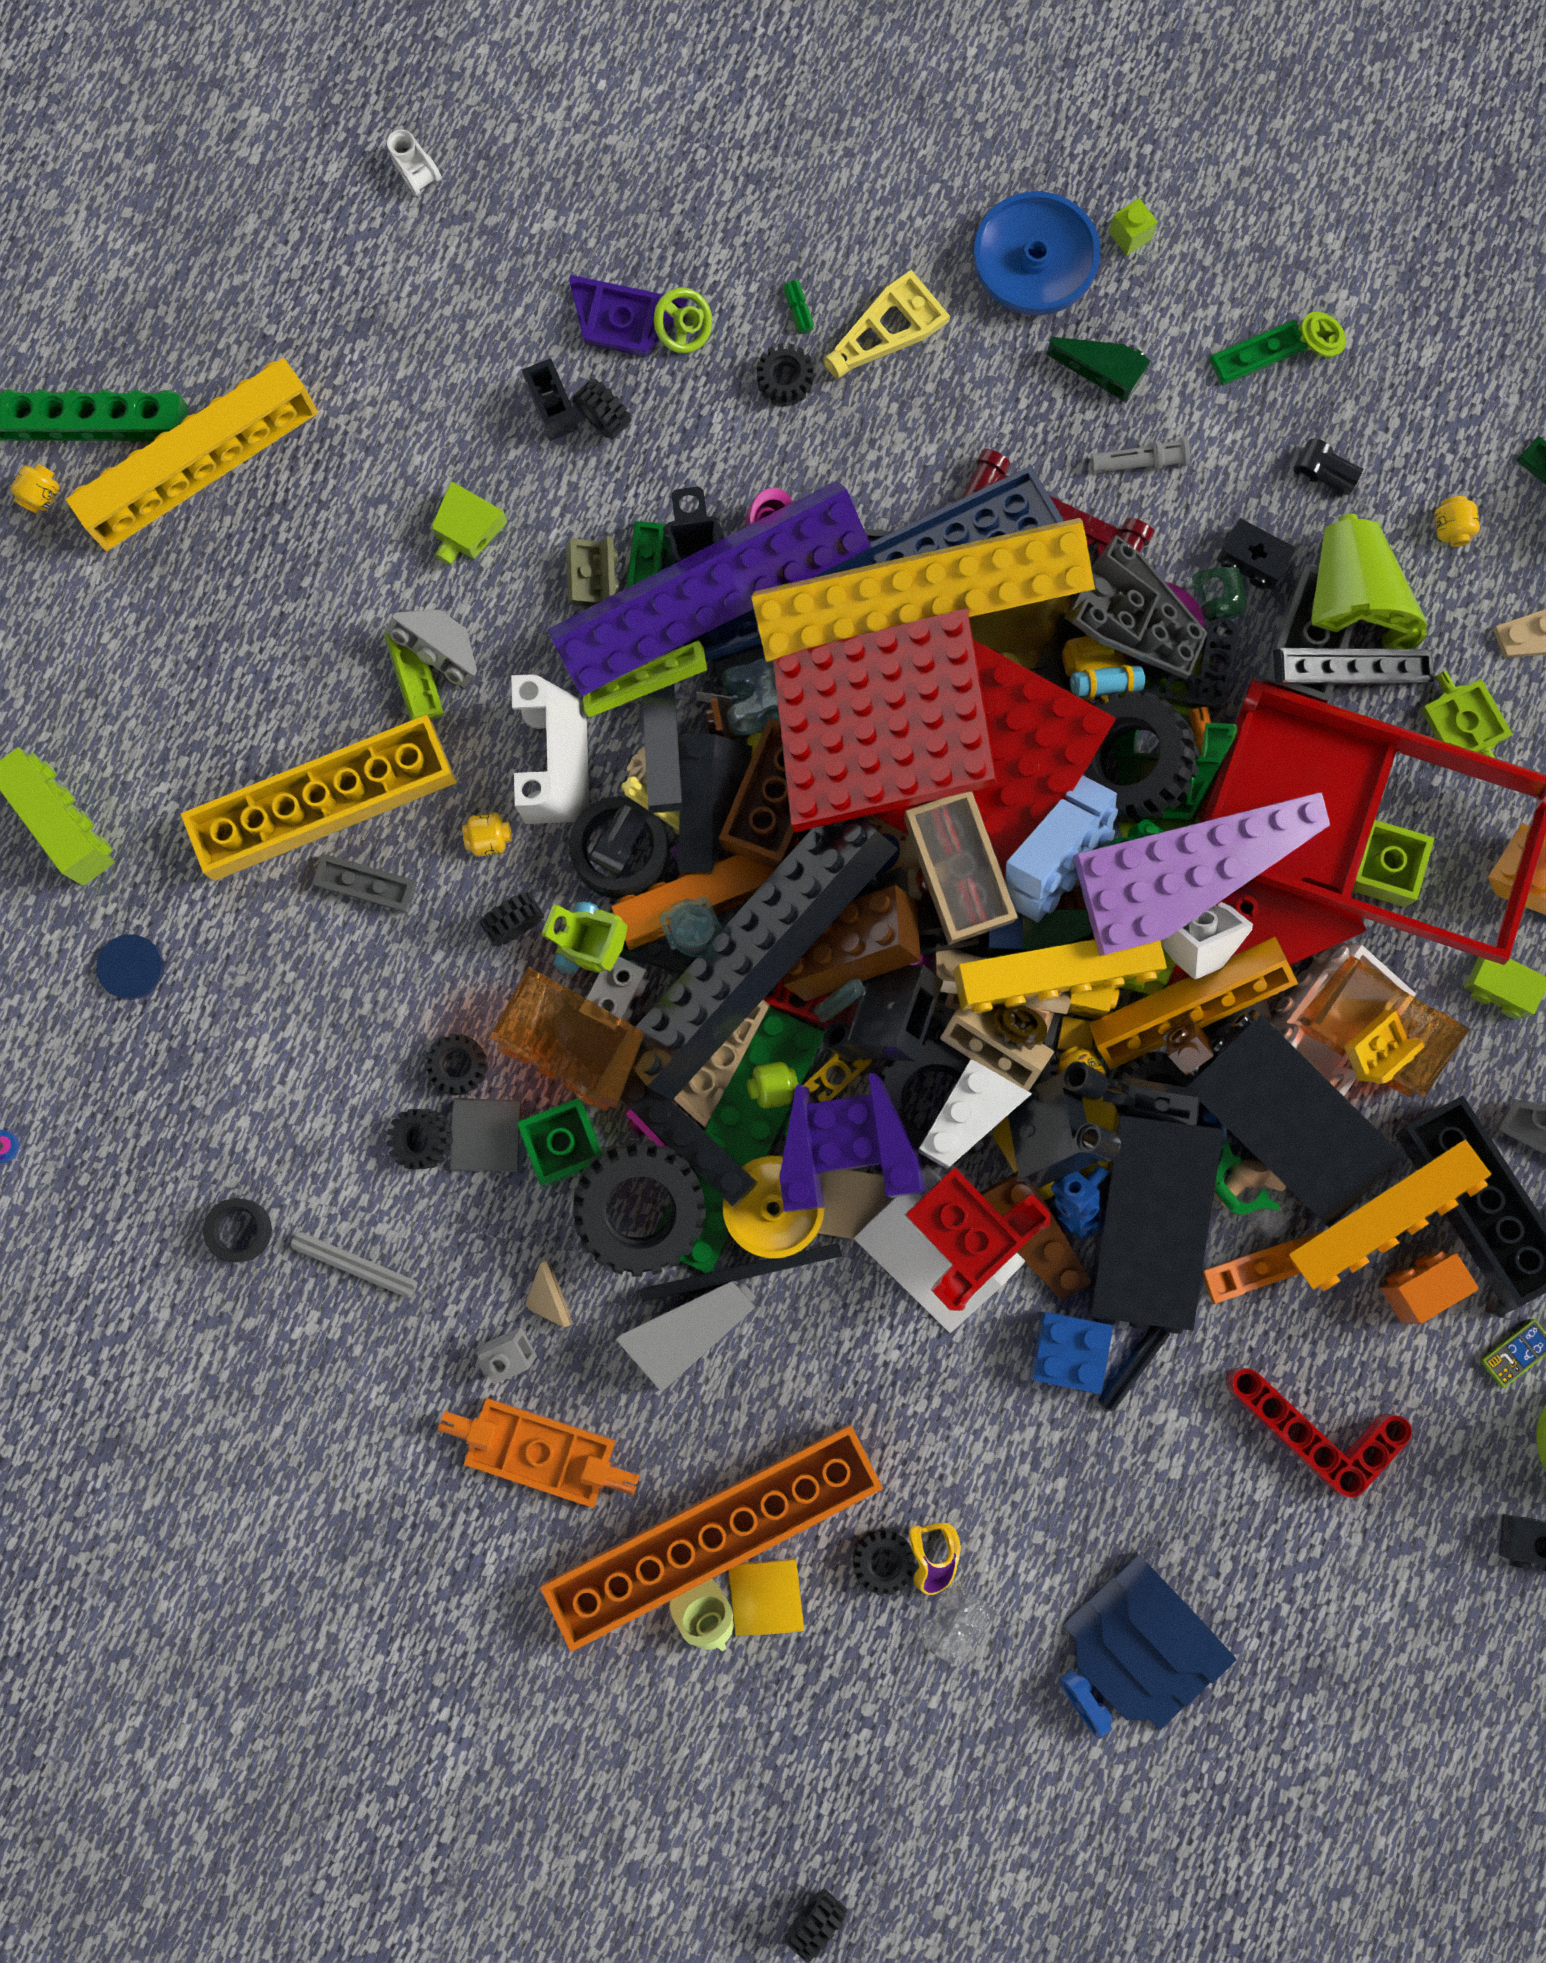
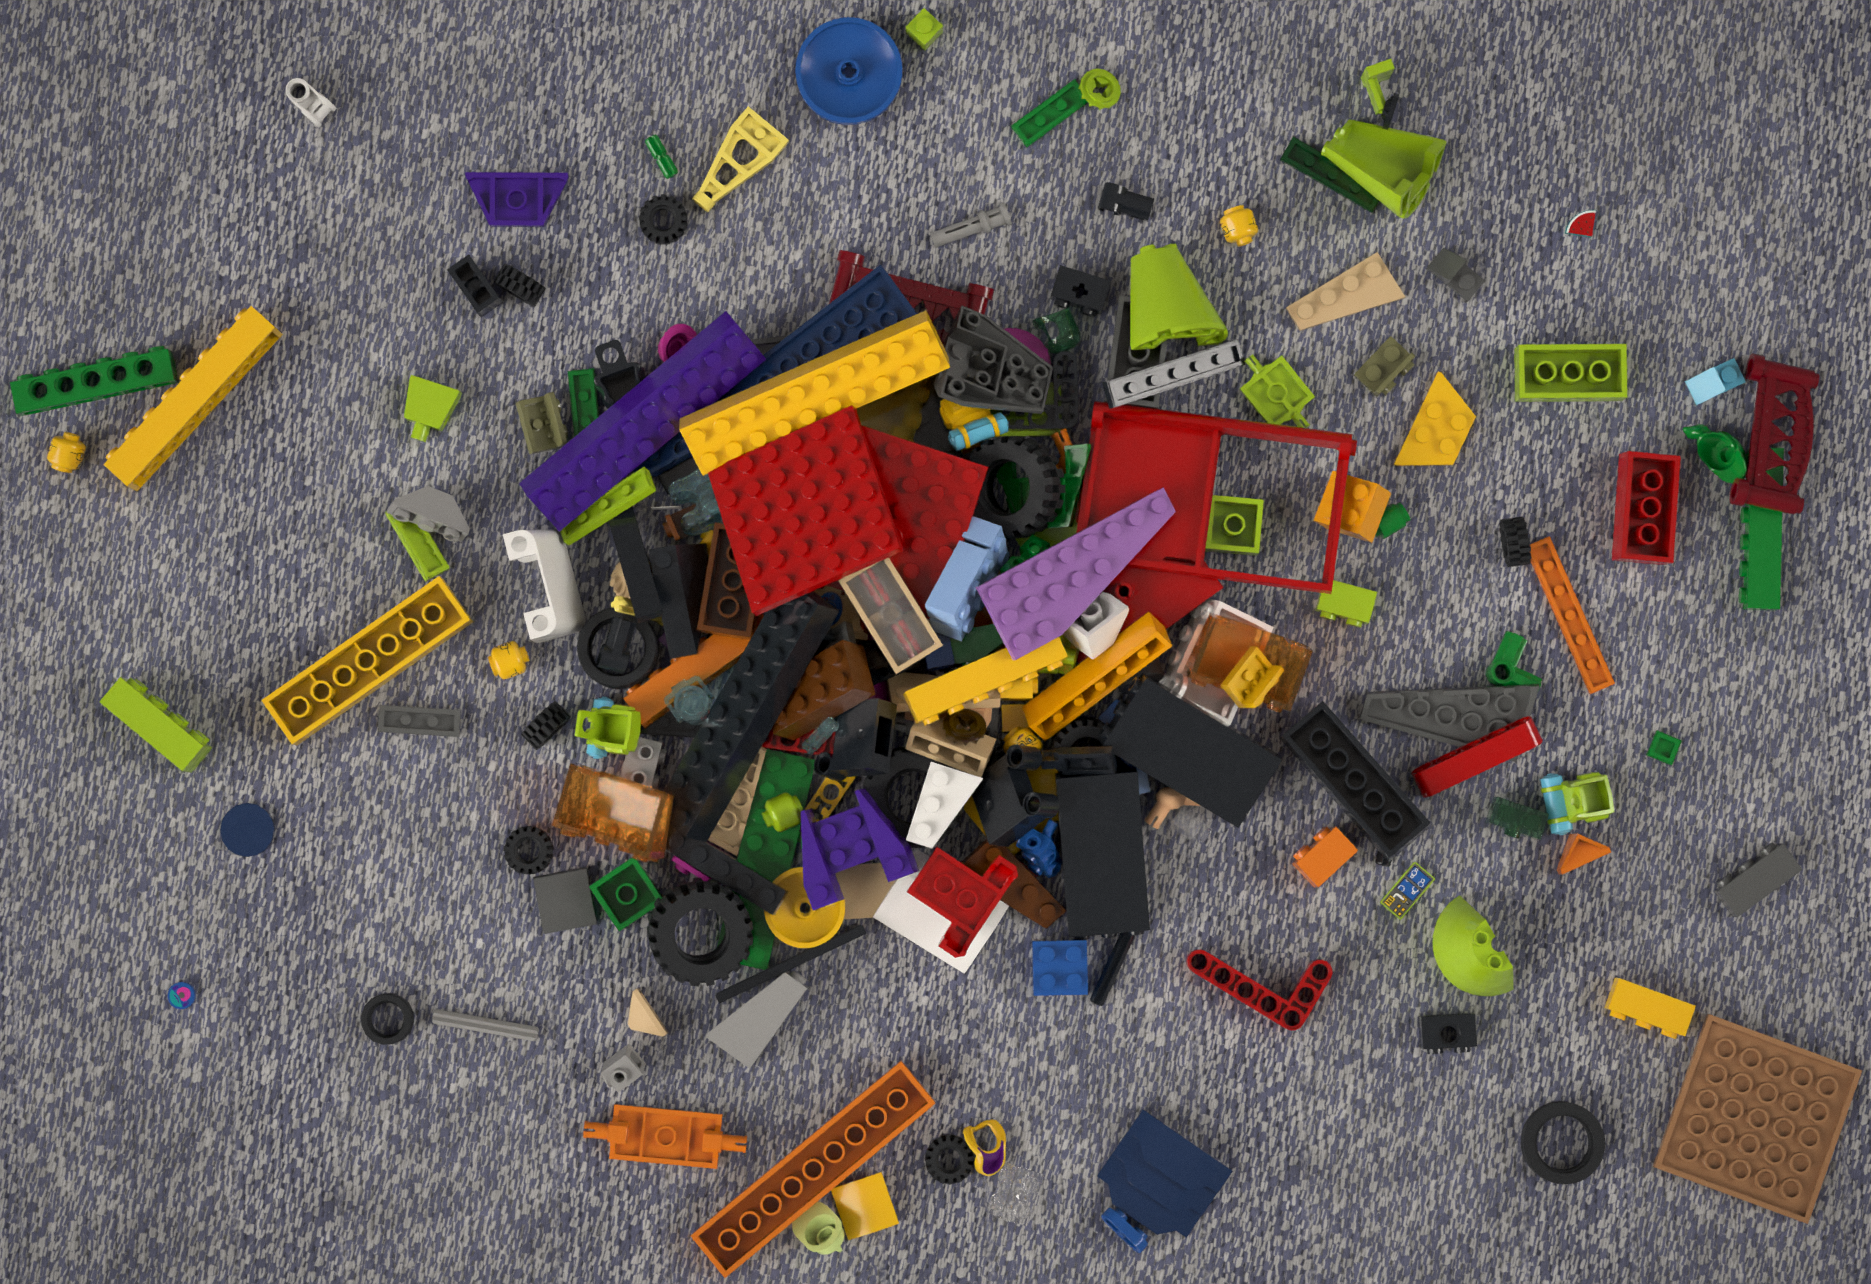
camera: 15 degrees left, 5 degrees up
(403, 1139) = (528, 912): black tyre -> none
(695, 320) = (579, 195): lime piece -> none
(1105, 364) = (929, 154): dark green slope -> none
(1188, 1045) = (1098, 712): reddish brown brick -> none
(1228, 1198) = (1156, 821): green helmet -> none
(1253, 1270) = (1198, 868): orange slope -> none
(1389, 1215) = (1280, 809): light orange brick -> none

